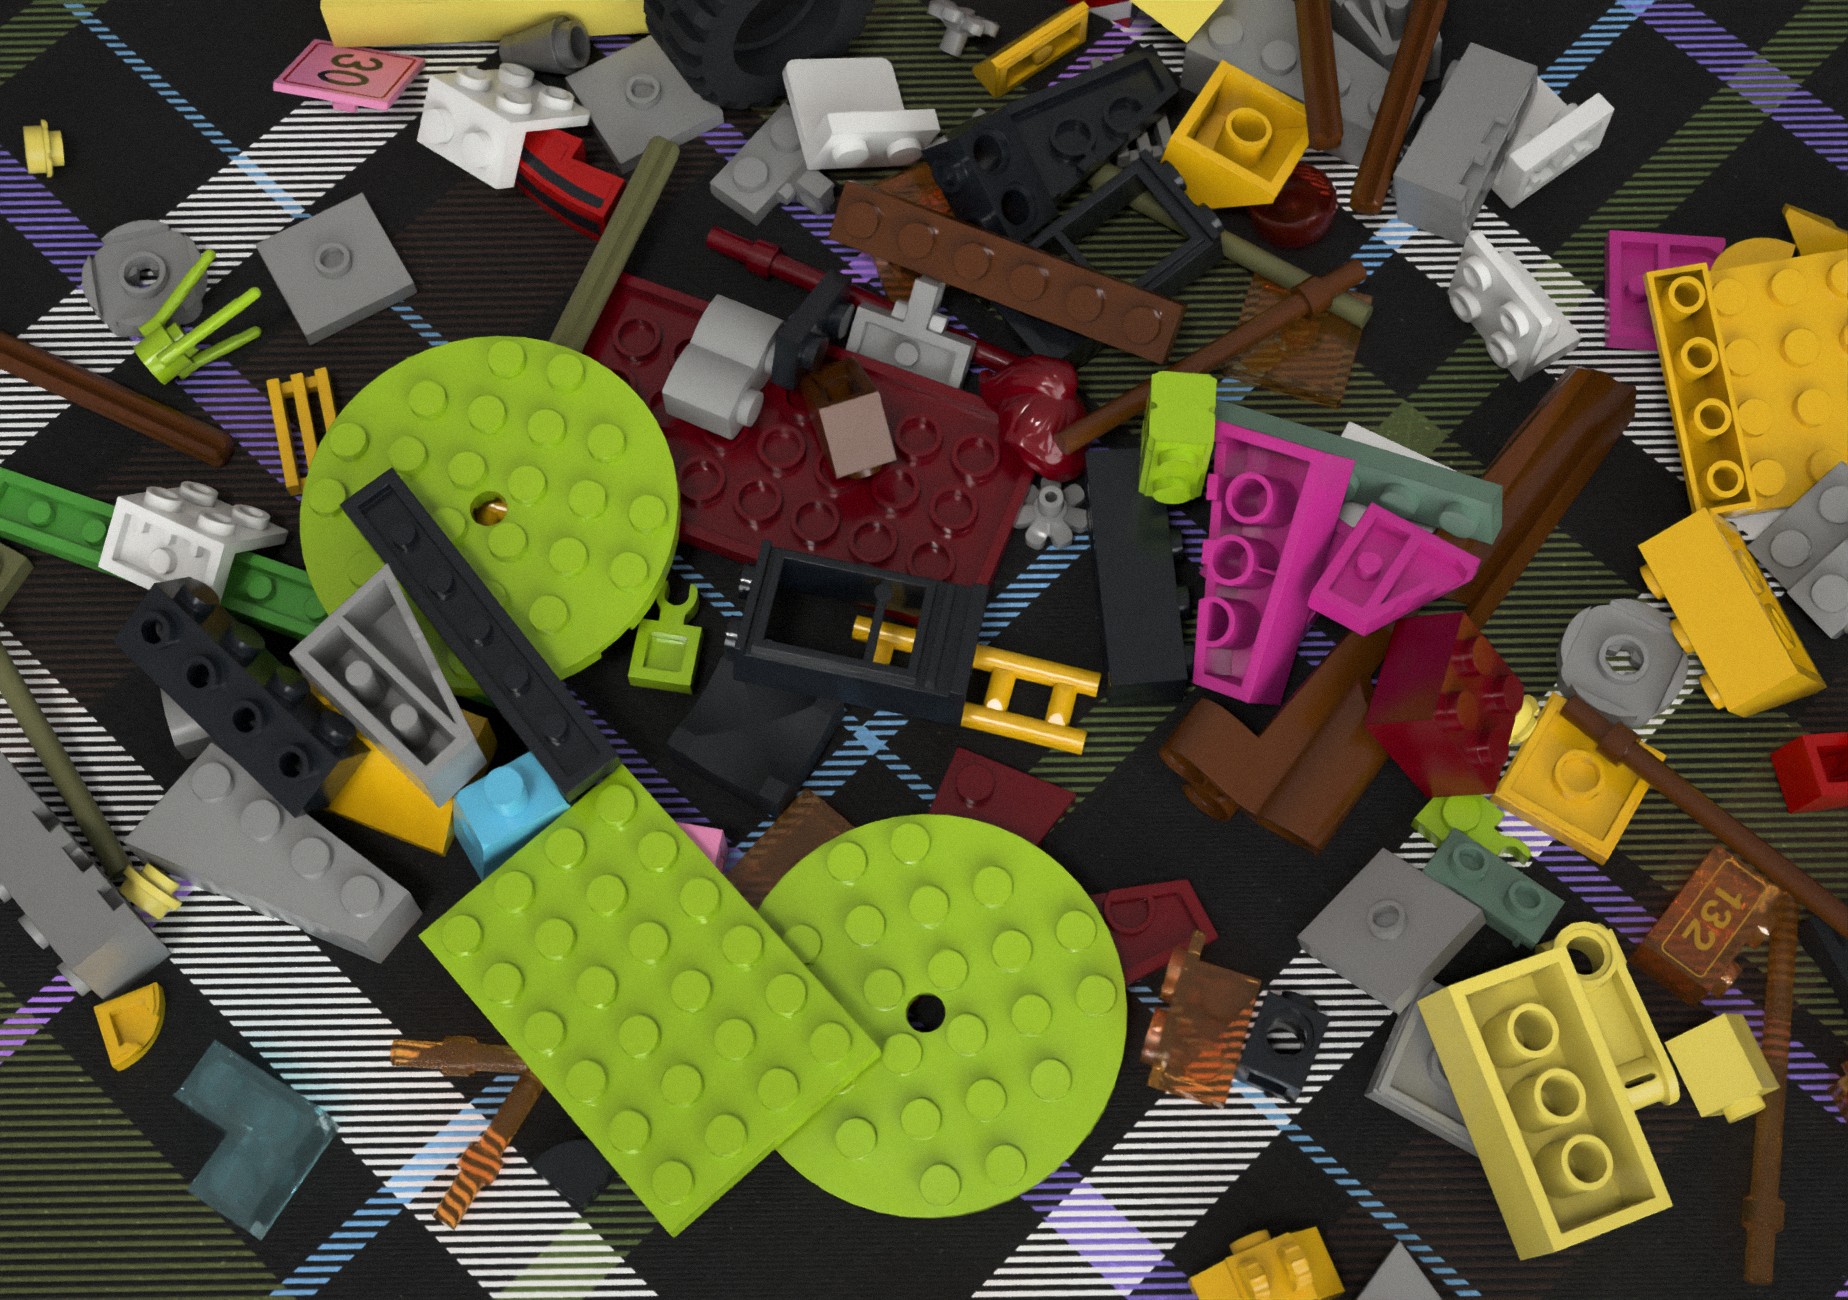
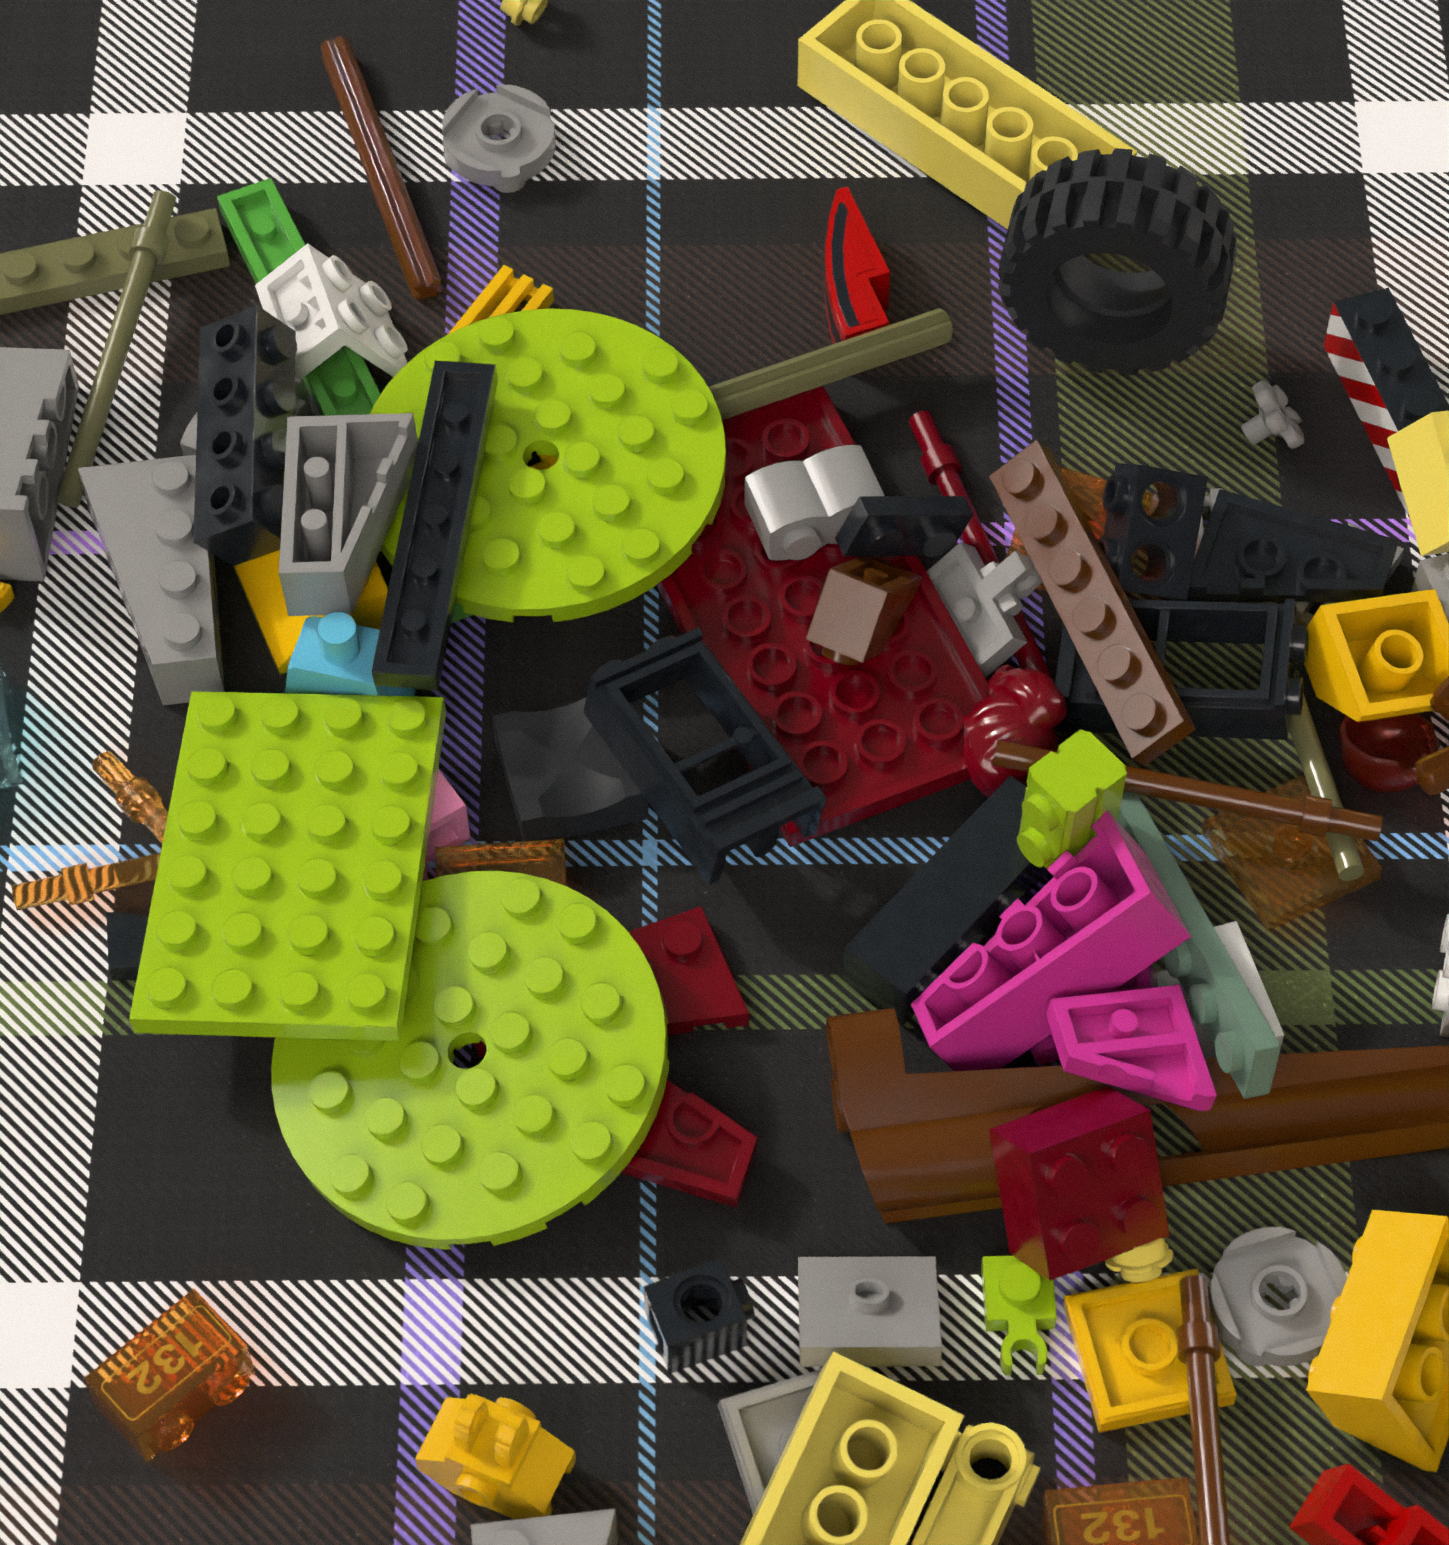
camera: 45 degrees right, 10 degrees down
(150, 890) = (69, 523): light yellow plate -> none
(171, 349) = (462, 191): lime plant -> none
(336, 268) = (634, 232): light grey plate -> none
(349, 75) = (781, 108): bright pink piece -> none
(484, 115) = (841, 194): white bracket -> none
(548, 47) = (945, 197): flat silver cone -> none
(640, 97) = (964, 282): light grey plate -> none
(668, 649) = (567, 661): lime plate -> none
(772, 171) = (1022, 407): light grey hinge -> none
(854, 114) = (1113, 408): white bracket -> none
(1005, 669) = (797, 888): yellow bar -> none
(1033, 50) = (1314, 482): yellow slope -> none
(1052, 514) = (948, 809): light grey plant -> none
(1203, 1032) = (647, 1231): clear orange bracket -> none
(1508, 897) = (980, 1353): sand green hinge -> none

